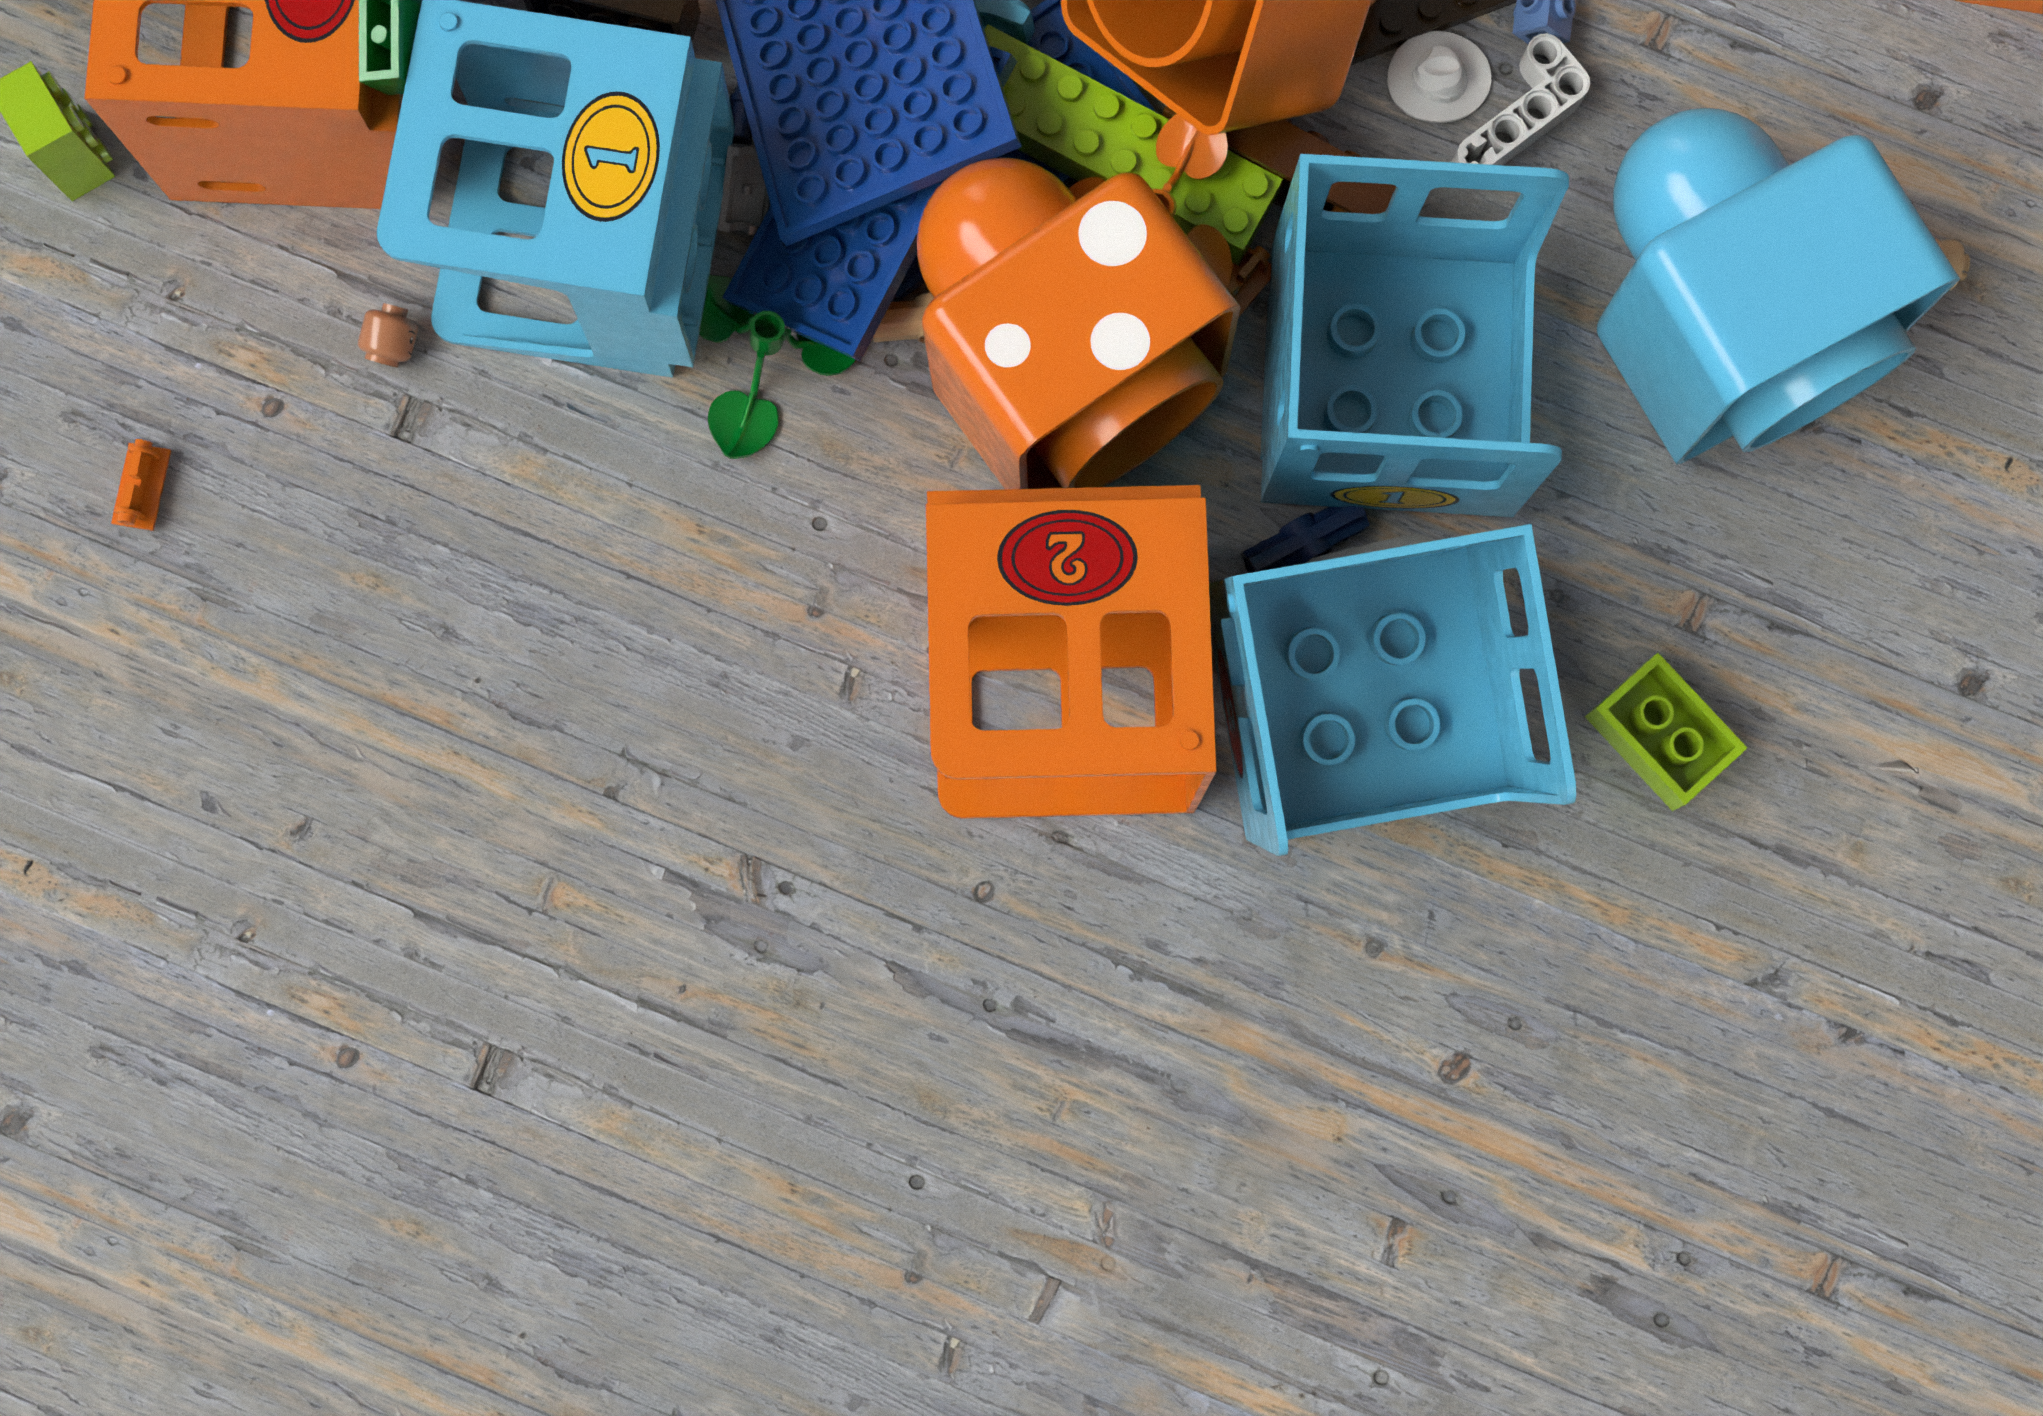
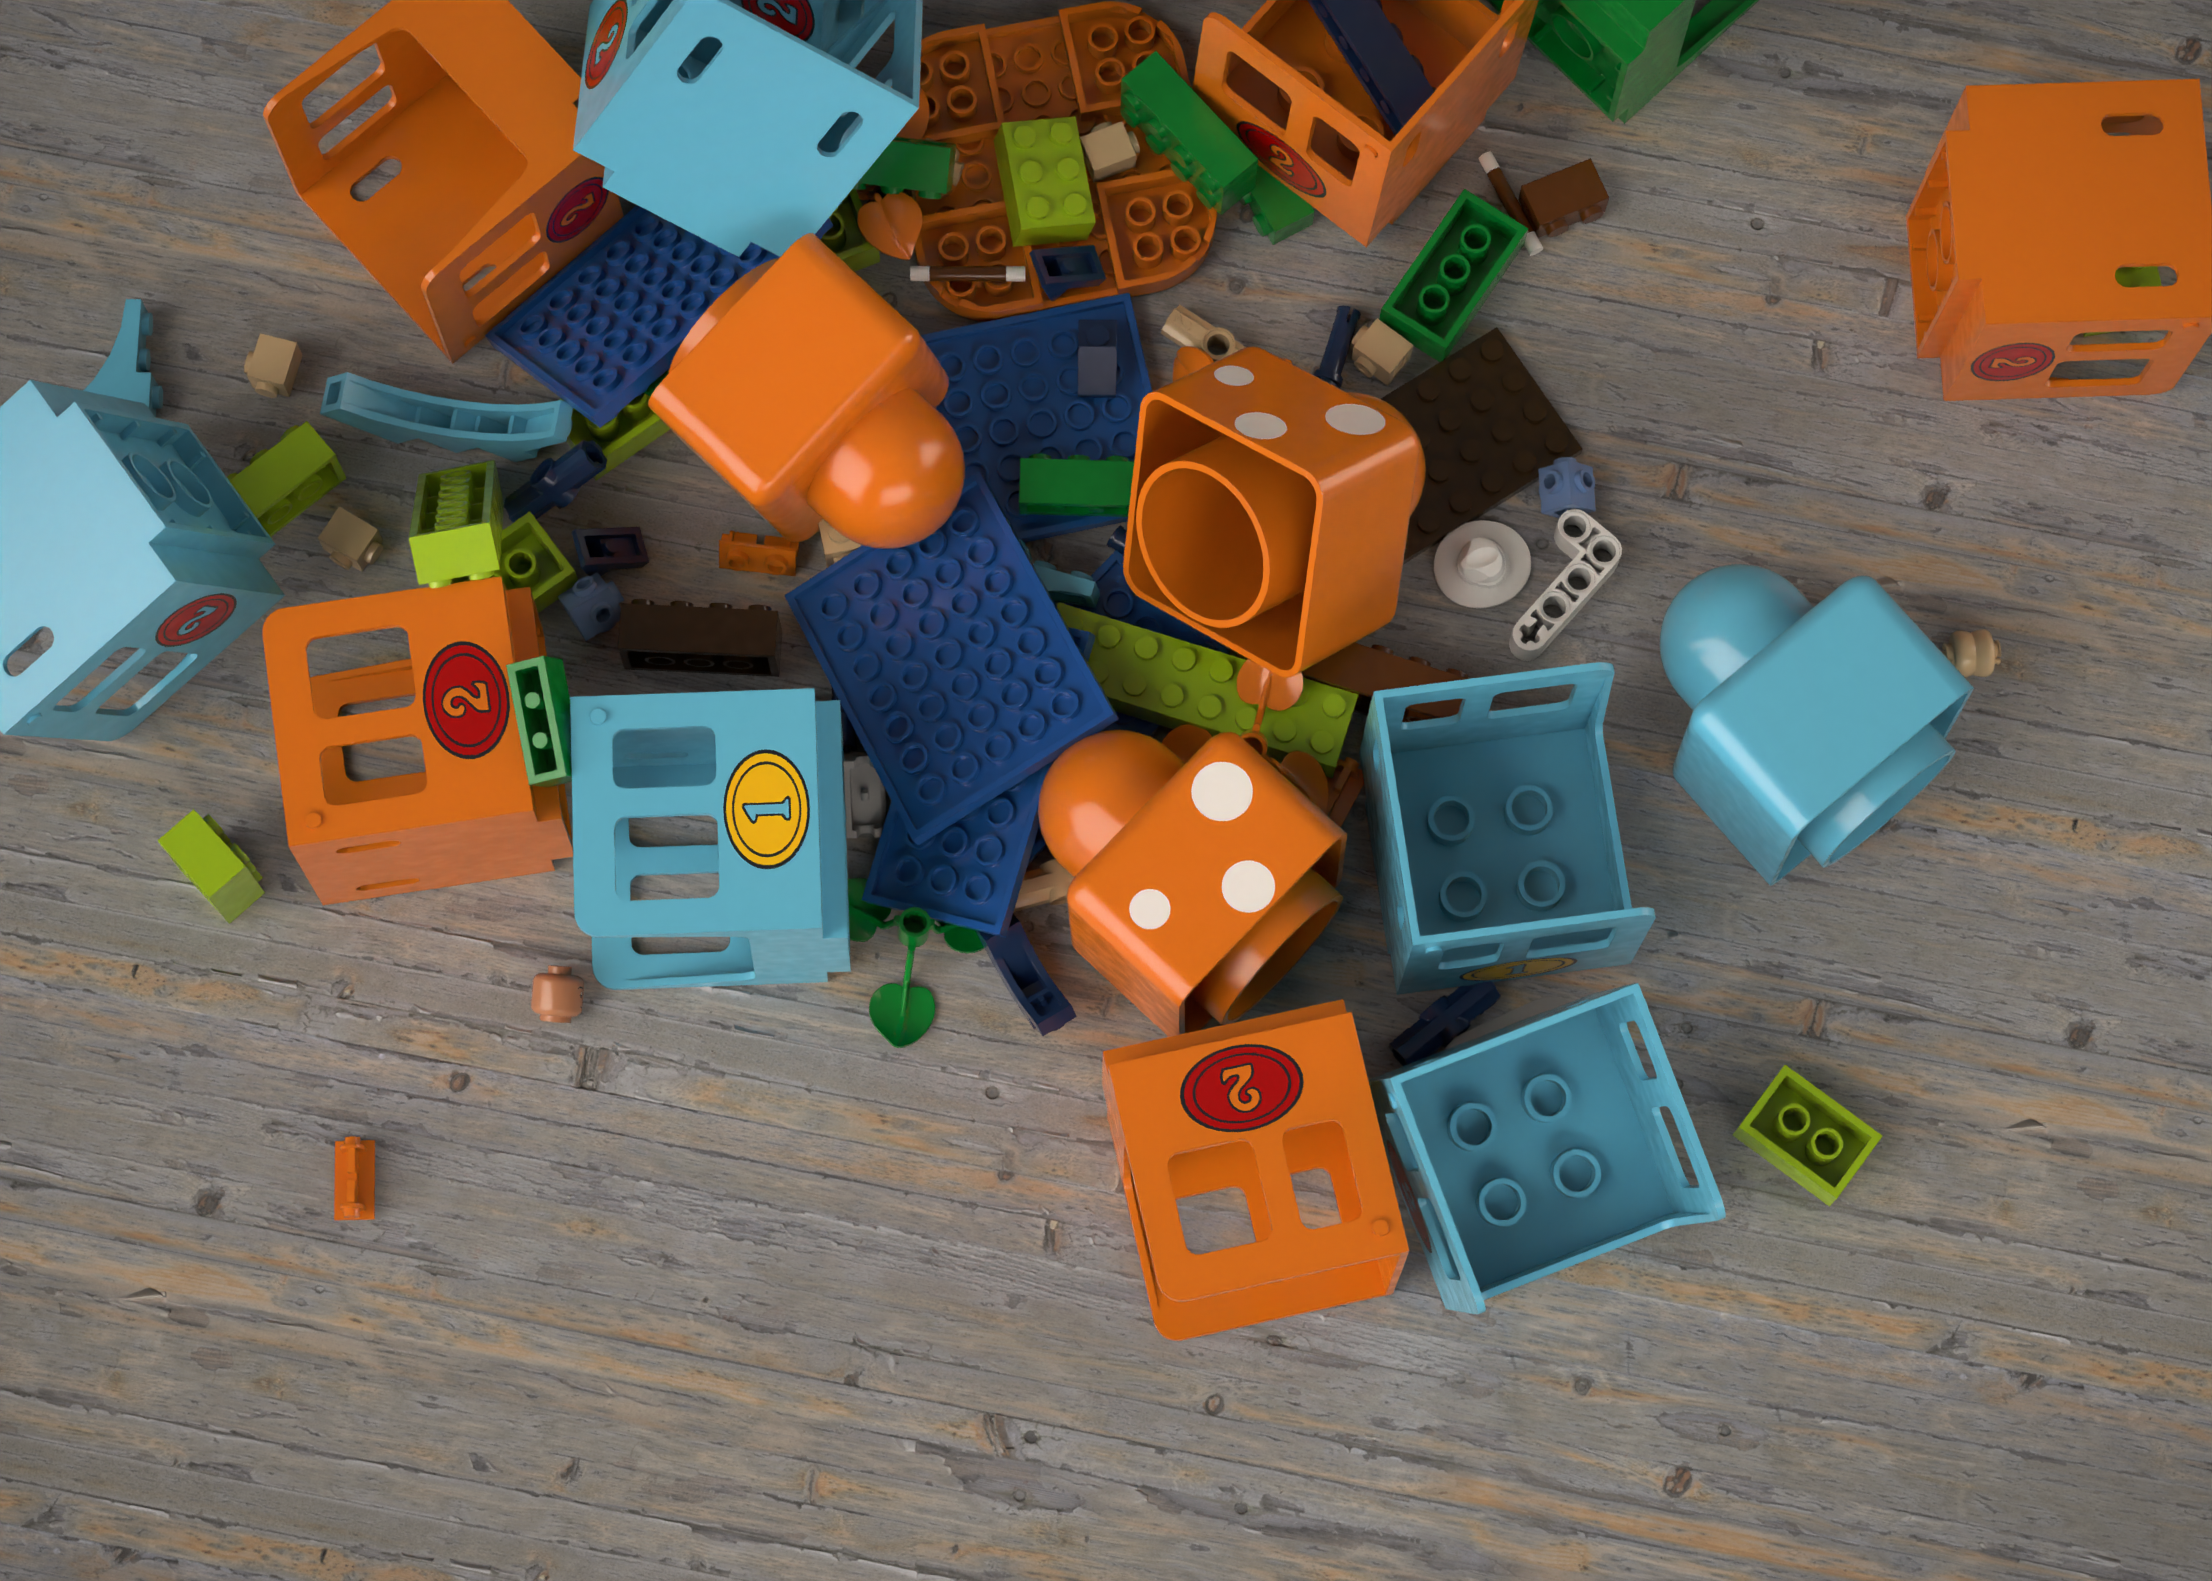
camera: 10 degrees left, 5 degrees down
(877, 409) = (1027, 979): none -> dark blue arch

